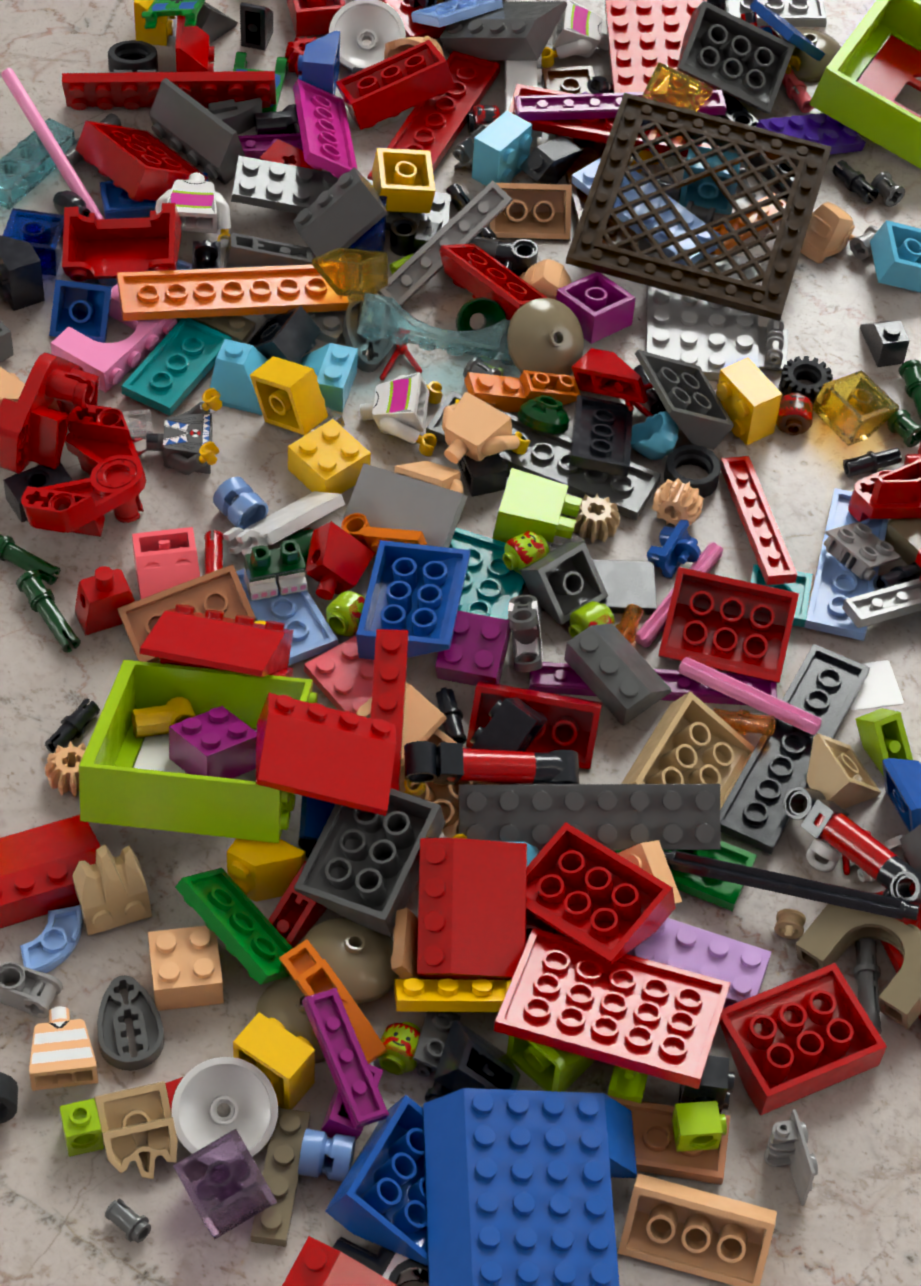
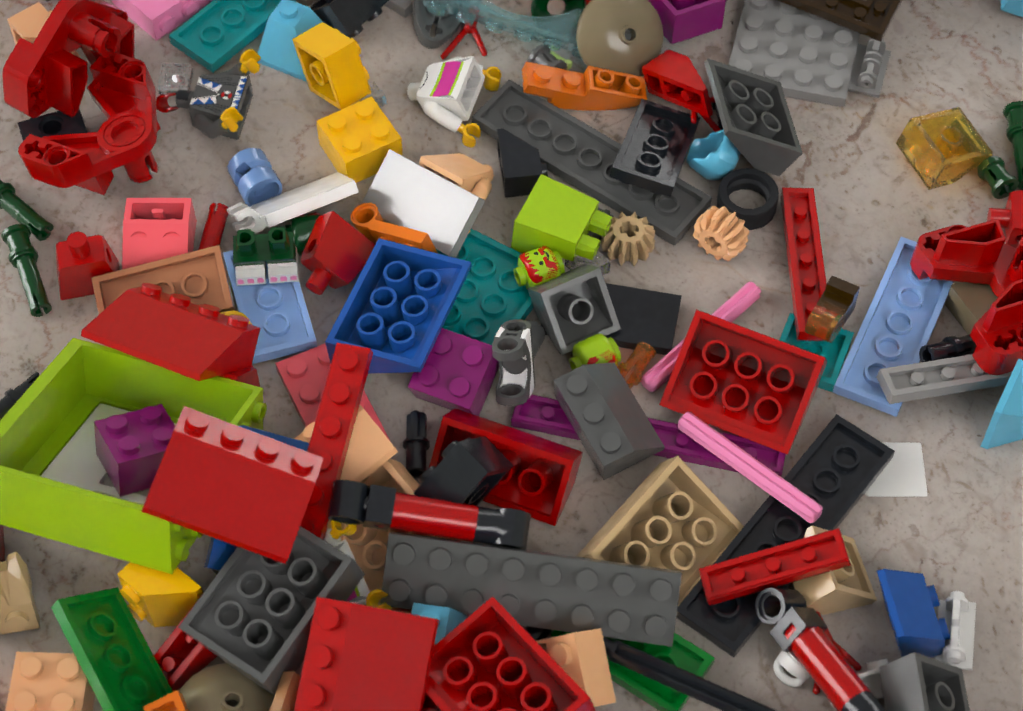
camera: 15 degrees right, 5 degrees up
(157, 719) = (98, 406): yellow piece -> none
(335, 372) = (388, 48): medium azure slope -> none
(345, 613) = (327, 309): lime head -> none
(478, 430) = (519, 128): light nougat torso -> none
(544, 415) = (600, 117): dark green piece -> none
(676, 549) = (710, 283): blue hips -> none
(745, 722) = (737, 497): clear orange pin -> none
(749, 400) = (824, 127): yellow brick -> none
(793, 771) = (774, 566): none -> red tile
(794, 553) = (832, 309): none -> leg
(795, 414) = (876, 145): reddish brown head -> none
(804, 370) = (898, 99): black tyre -> none
(859, 549) = (912, 311): light grey hinge -> none
(871, 462) = (950, 210): black axle -> none
(883, 736) = (893, 537): lime slope -> none
(886, 342) = (996, 77): black slope -> none

